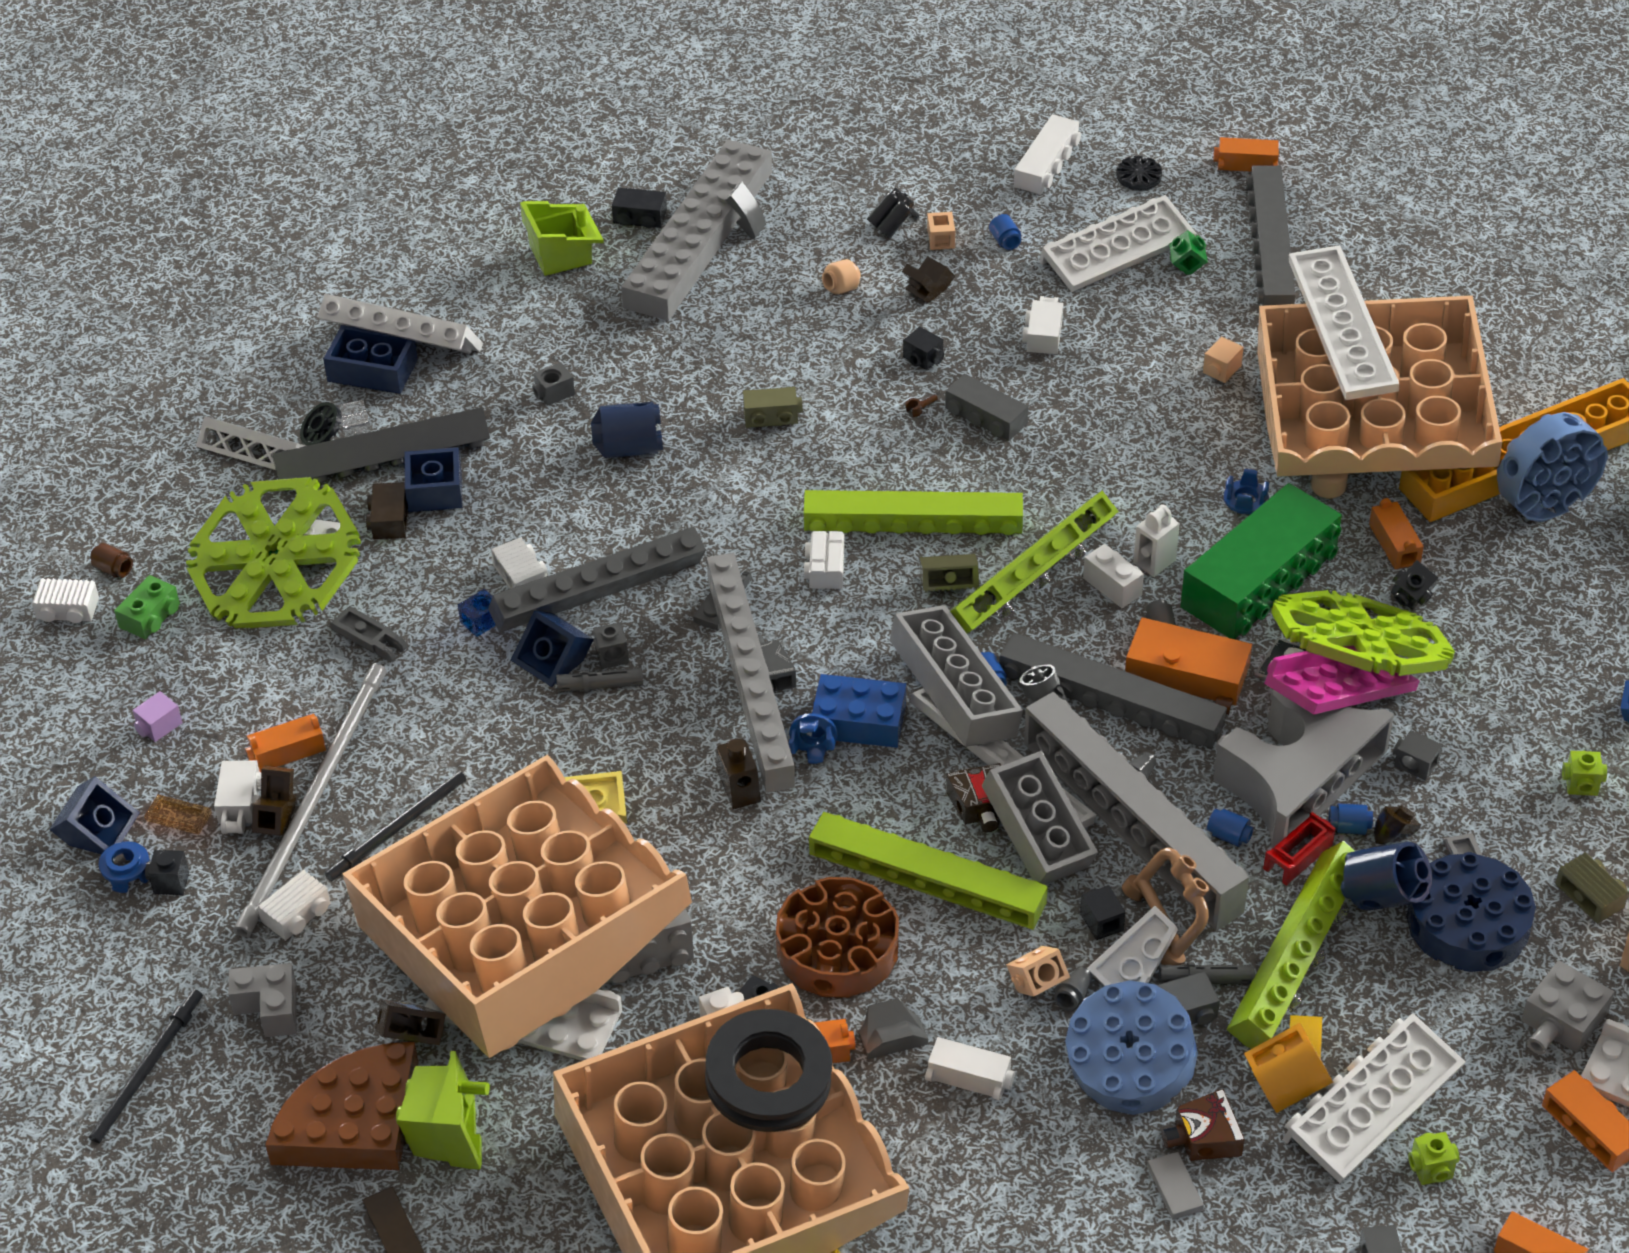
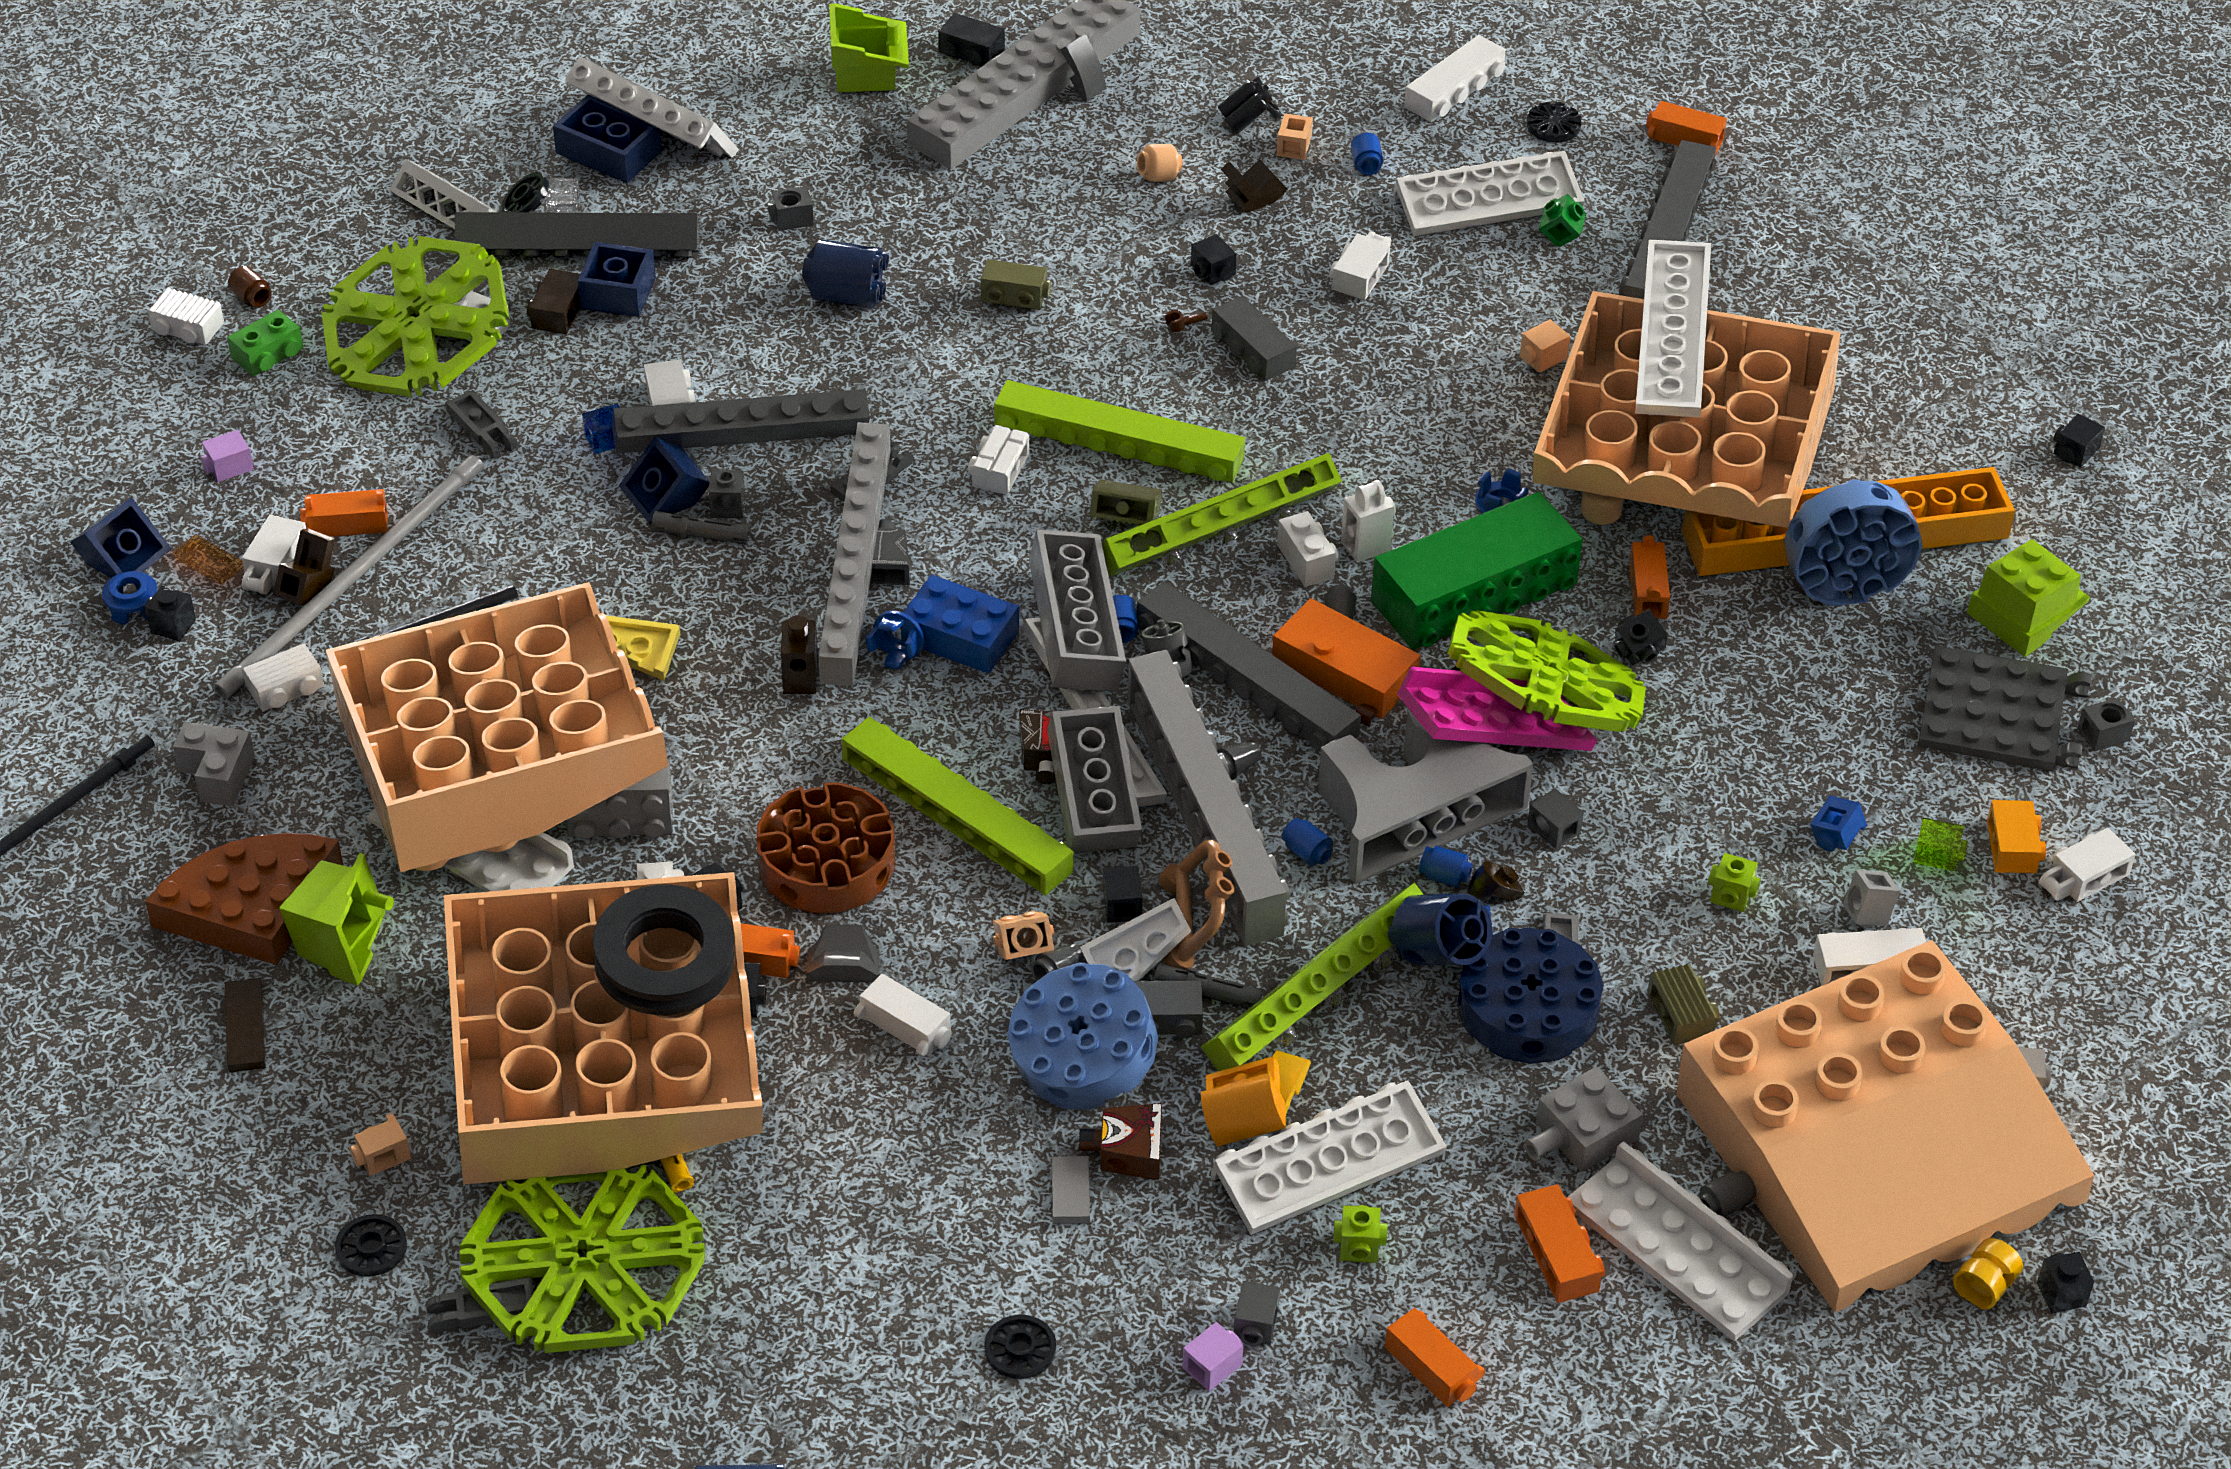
camera: 15 degrees right, 0 degrees up
(404, 1022) = (342, 819): dark brown torso -> none
(1293, 866) = (1373, 882): red window -> none

